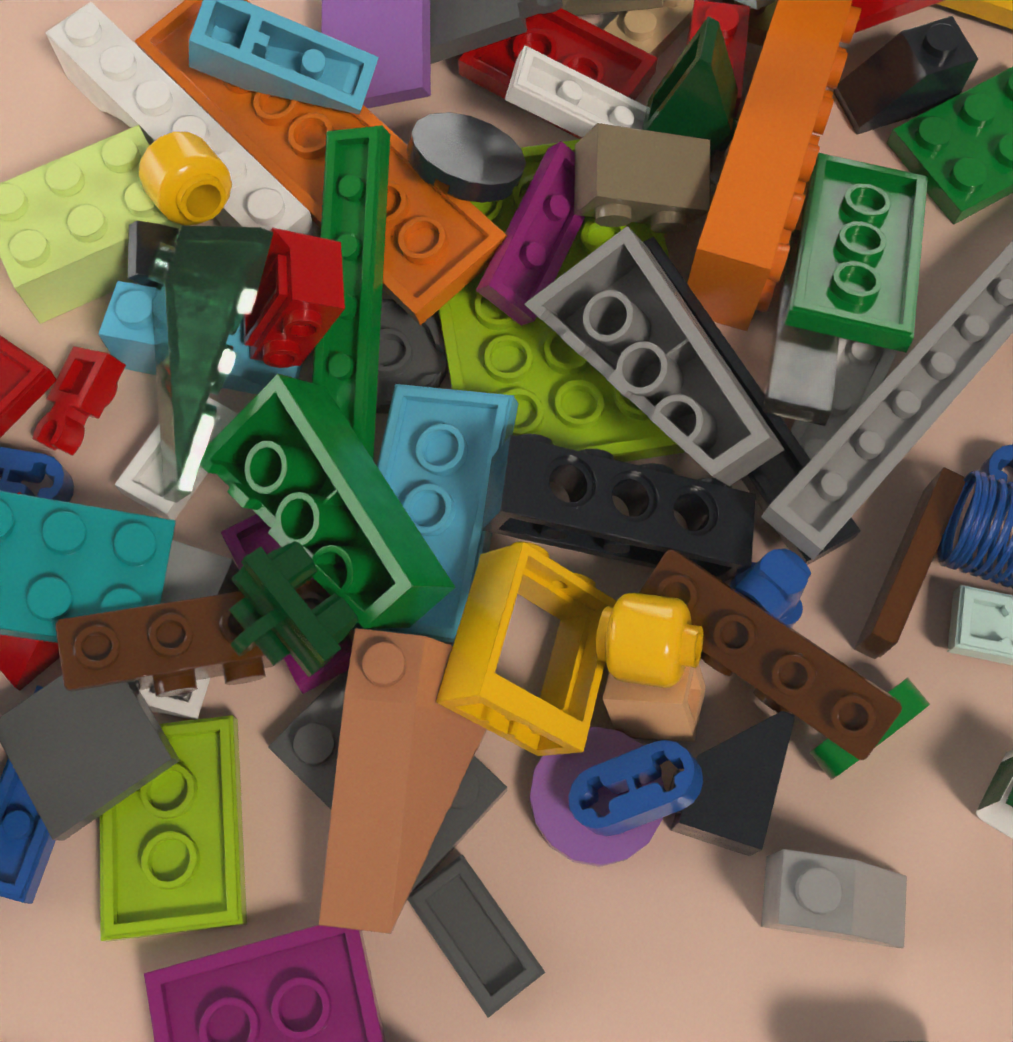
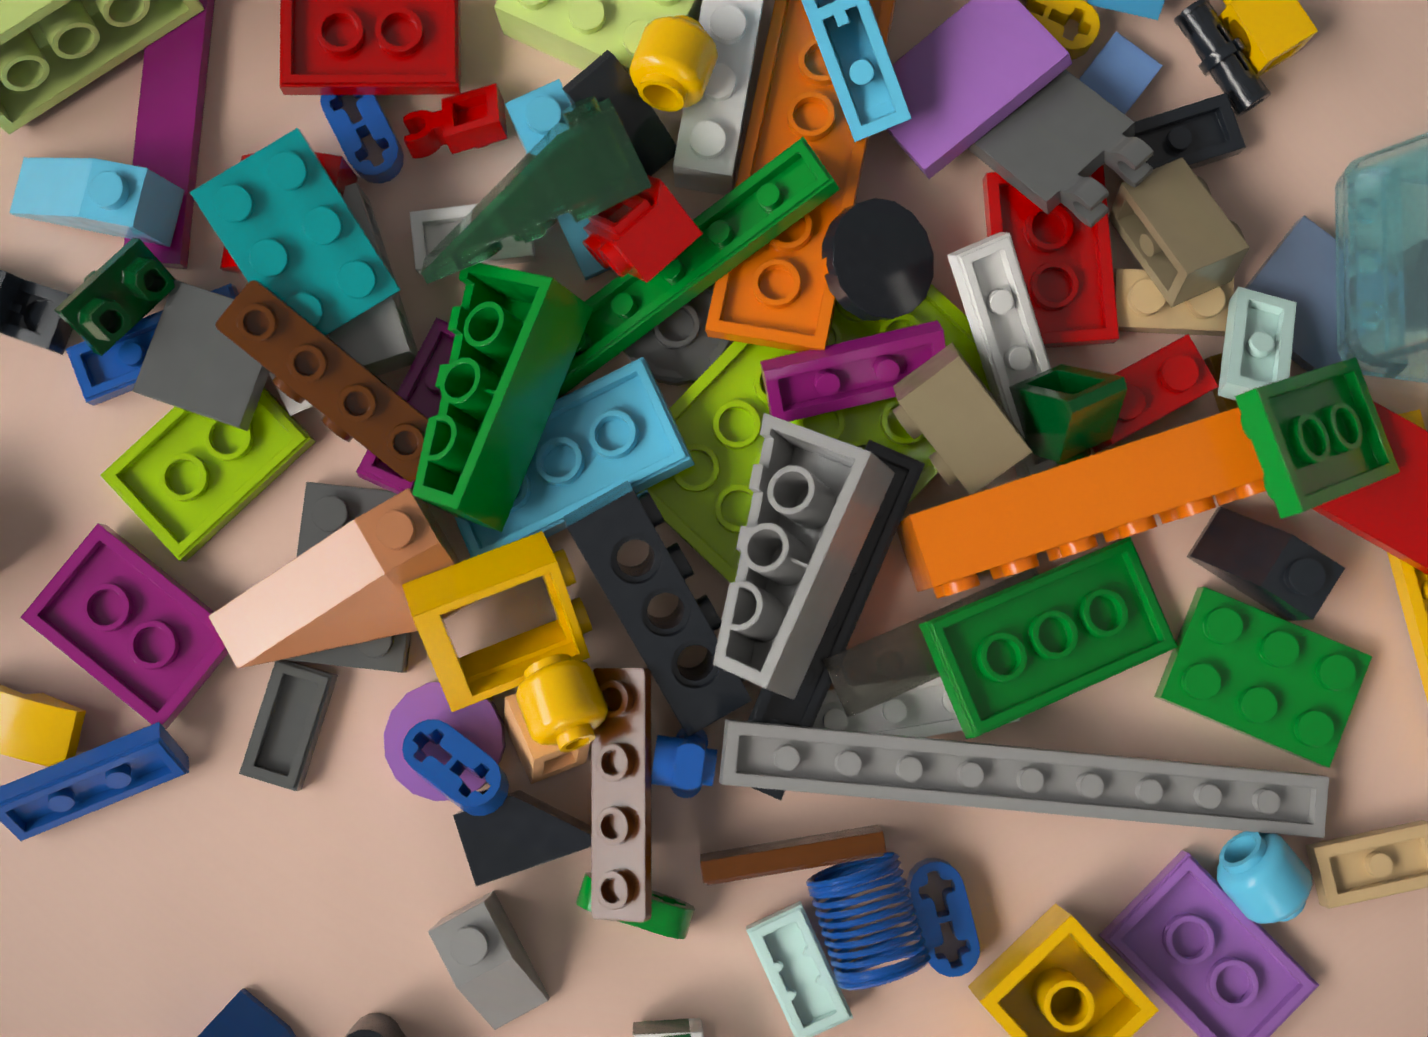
camera: 55 degrees right, 15 degrees up
(279, 618) = (381, 462): dark green hips -> none

